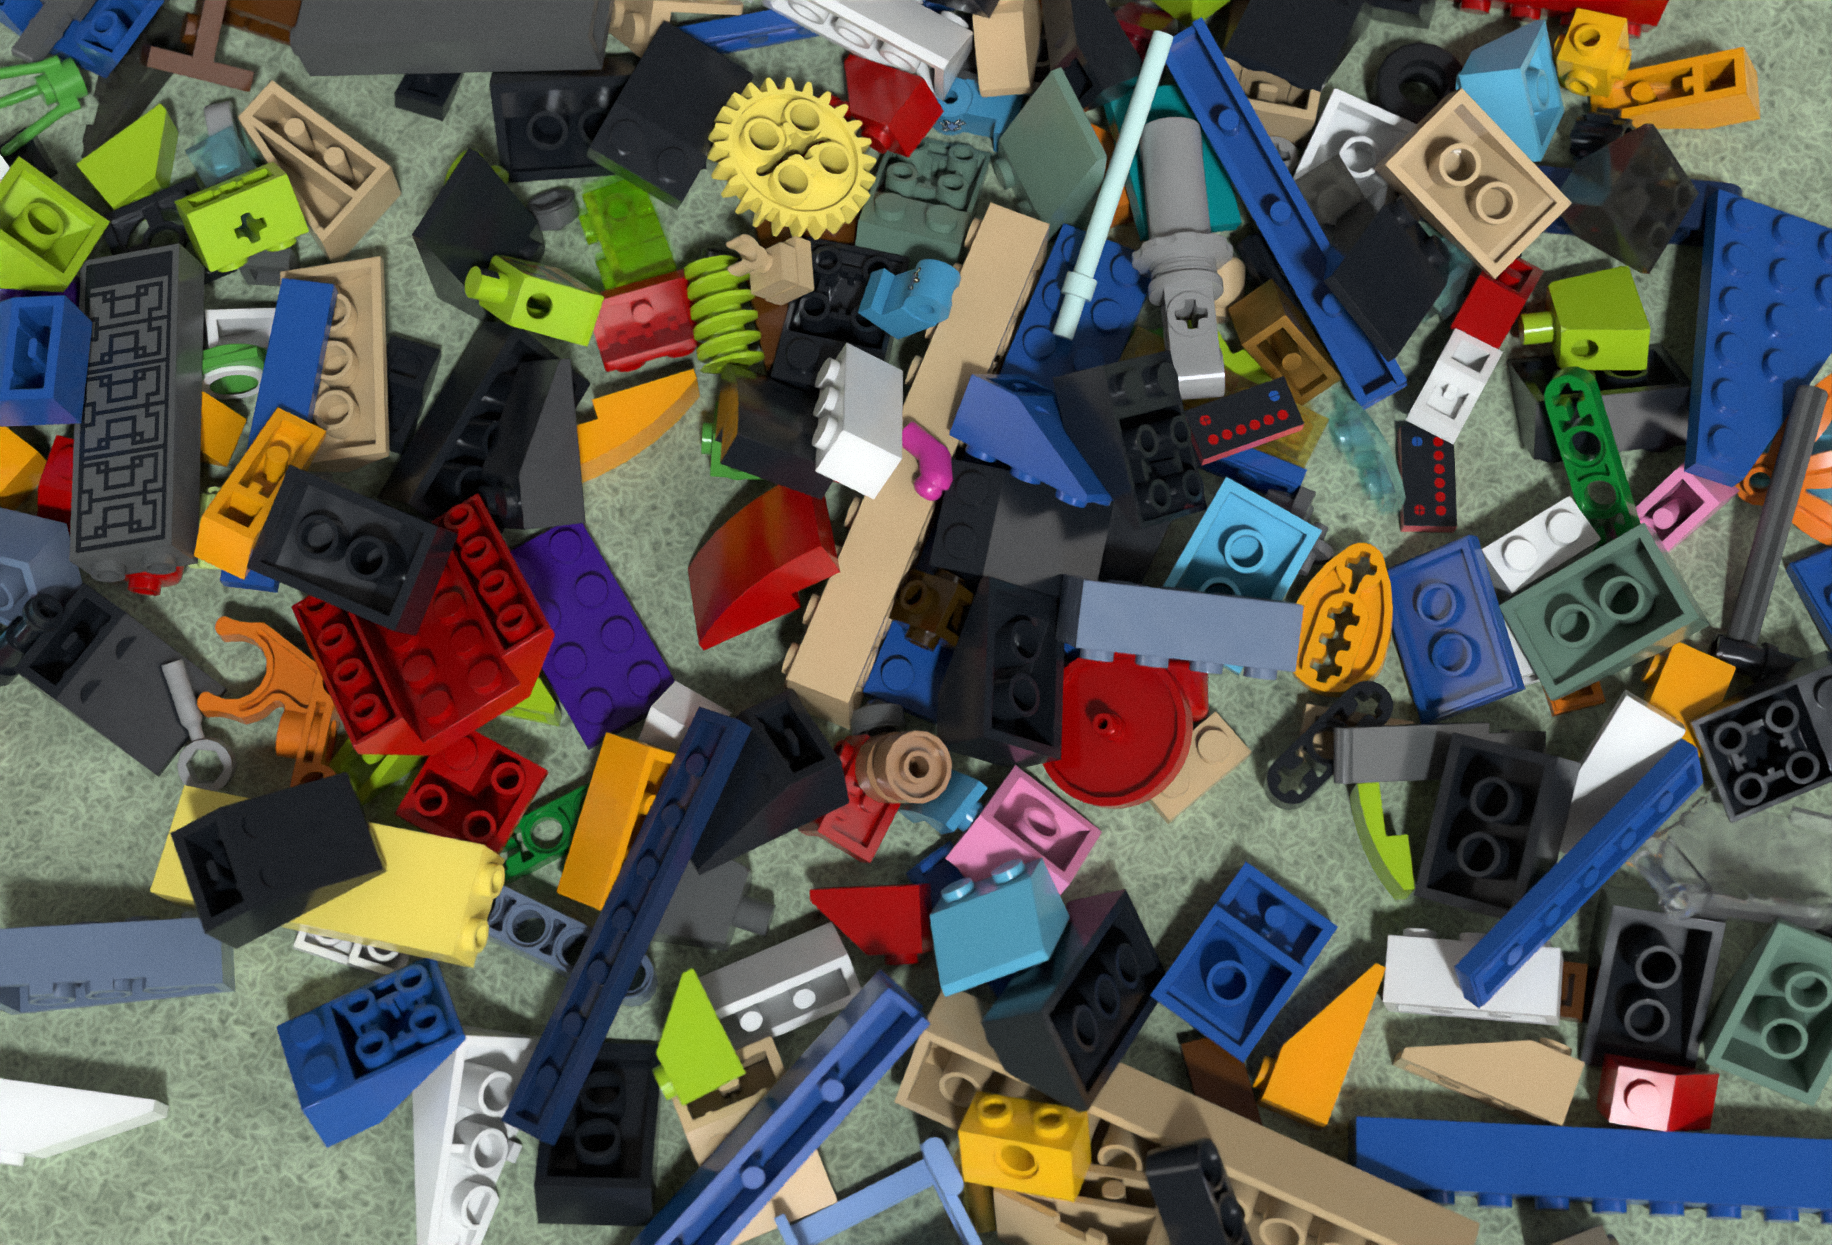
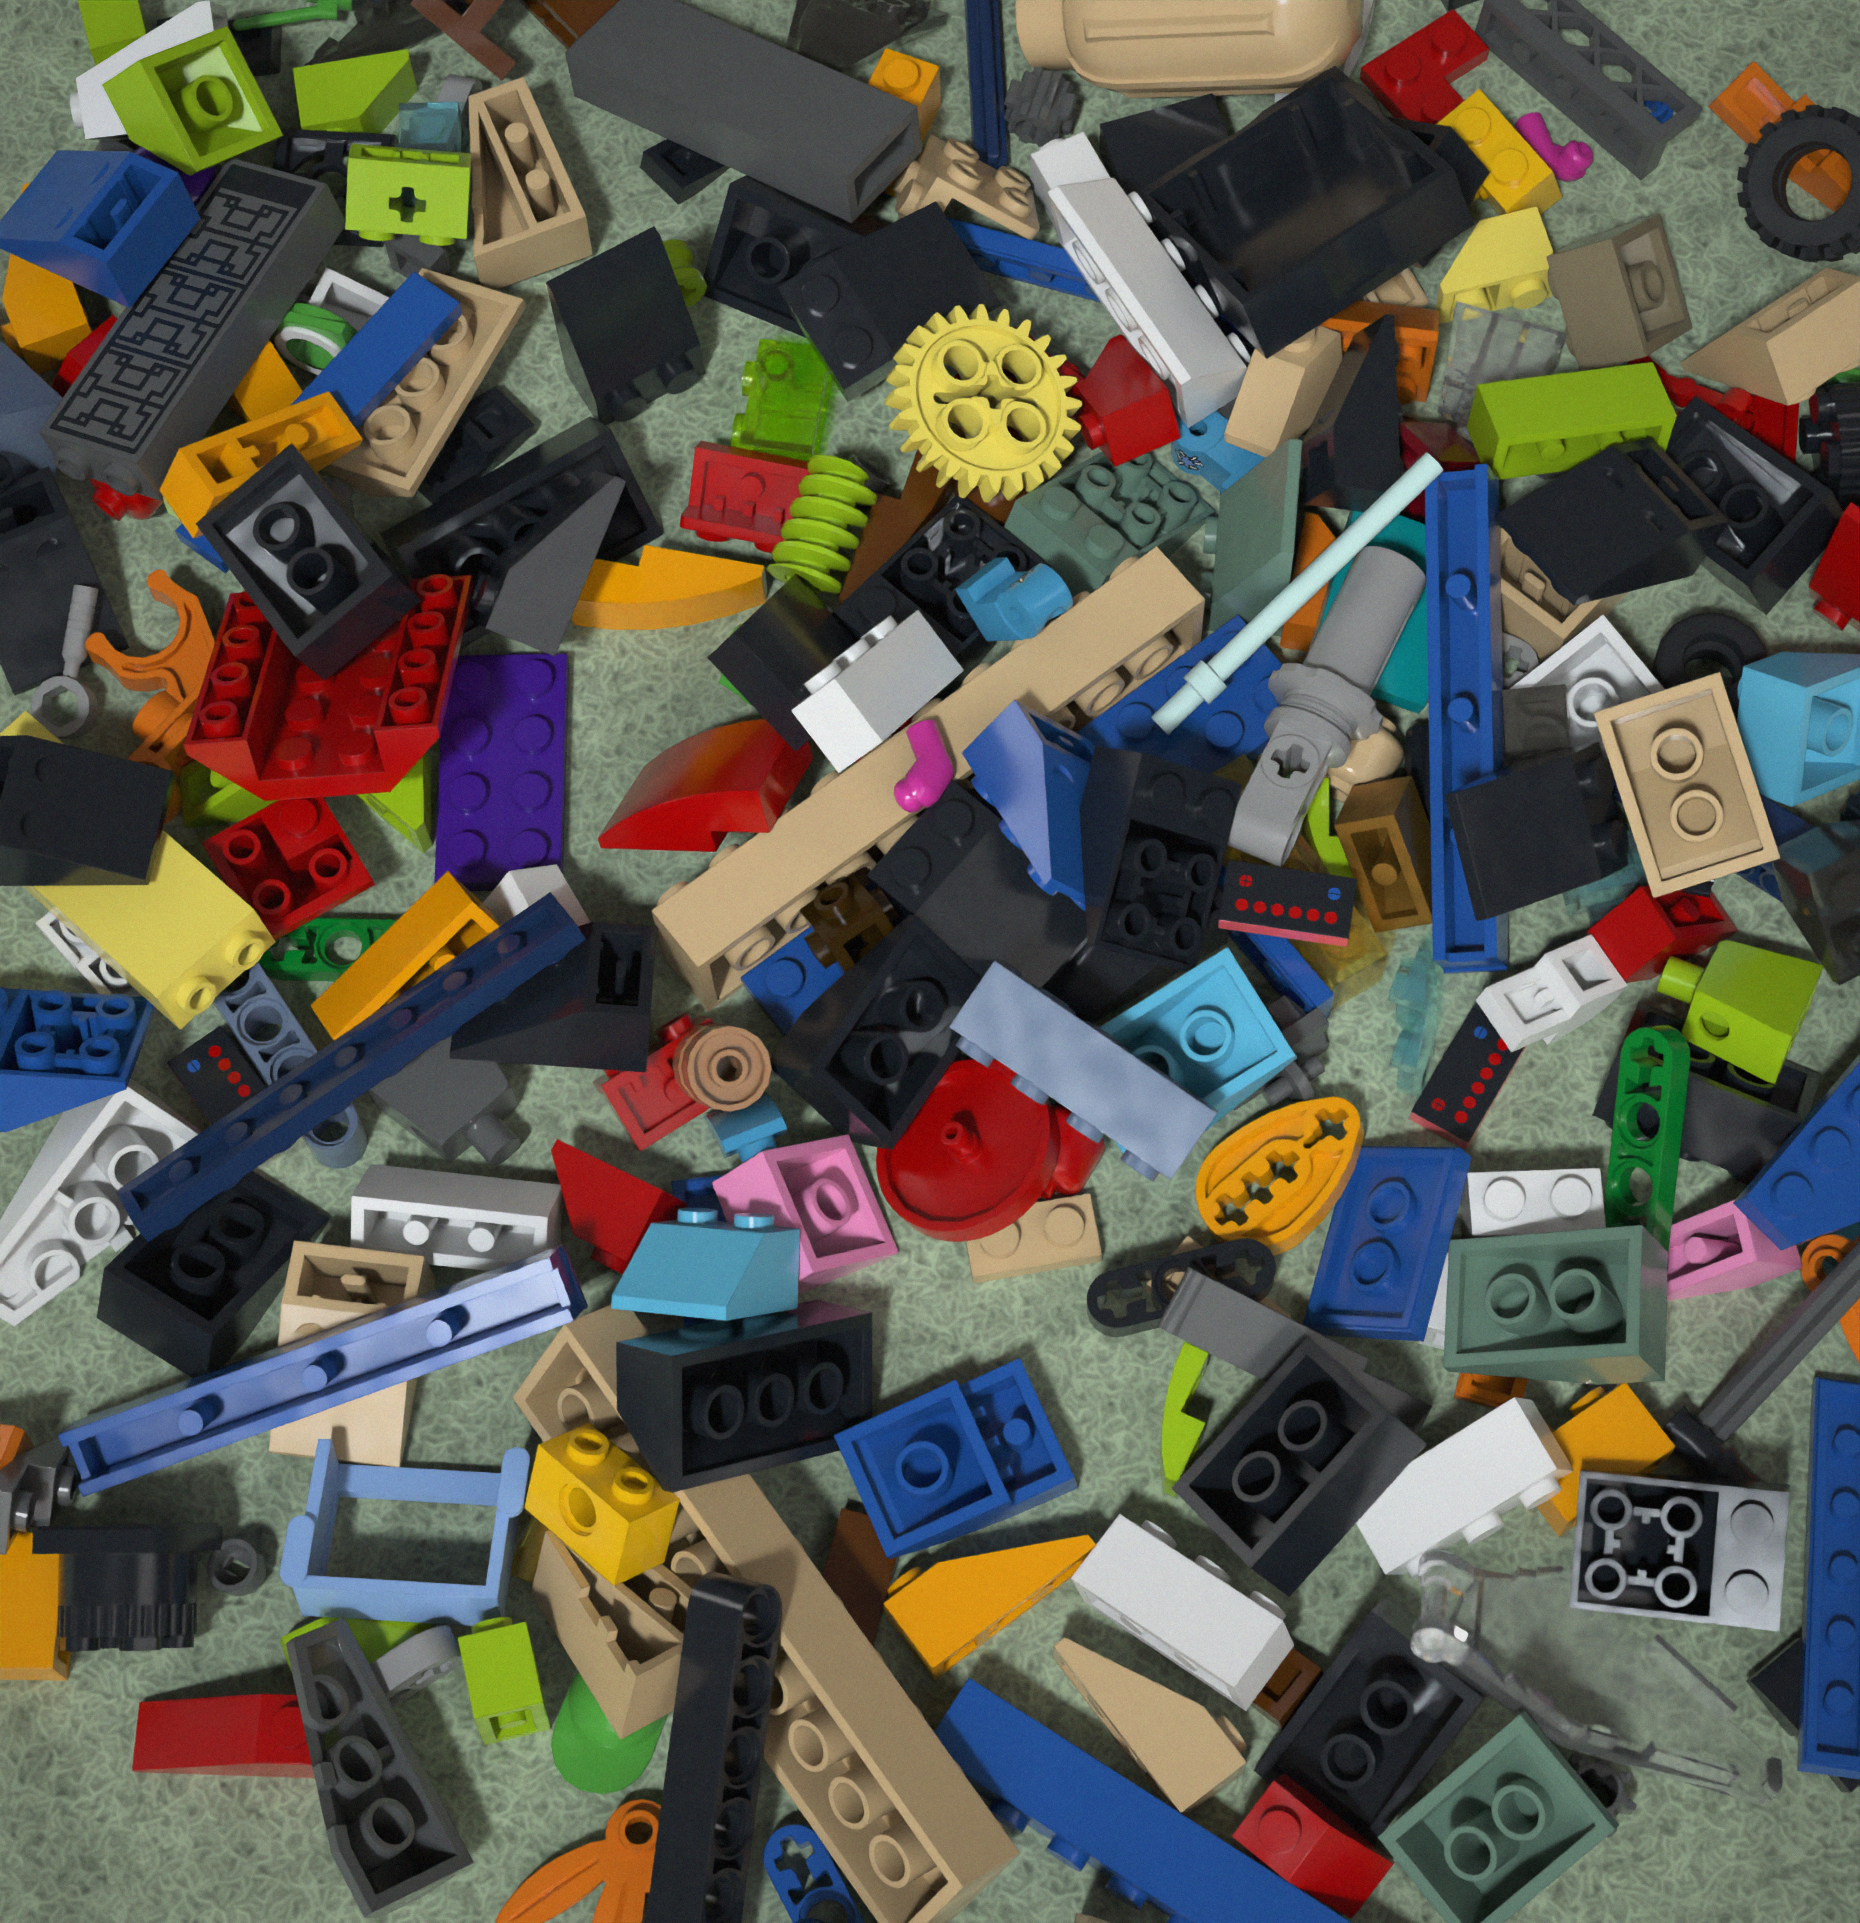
camera: 35 degrees right, 5 degrees down
(516, 988) = (215, 1075): none -> black tile
(536, 298) = (645, 413): lime torso -> none
(554, 209) = (728, 343): dark grey tile -> none
(694, 1046) = (337, 1216): lime slope -> none
(775, 272) = (900, 508): tan piece -> none
(878, 717) = (736, 1009): dark grey tile -> none
(1579, 874) = (1350, 1553): blue tile -> none

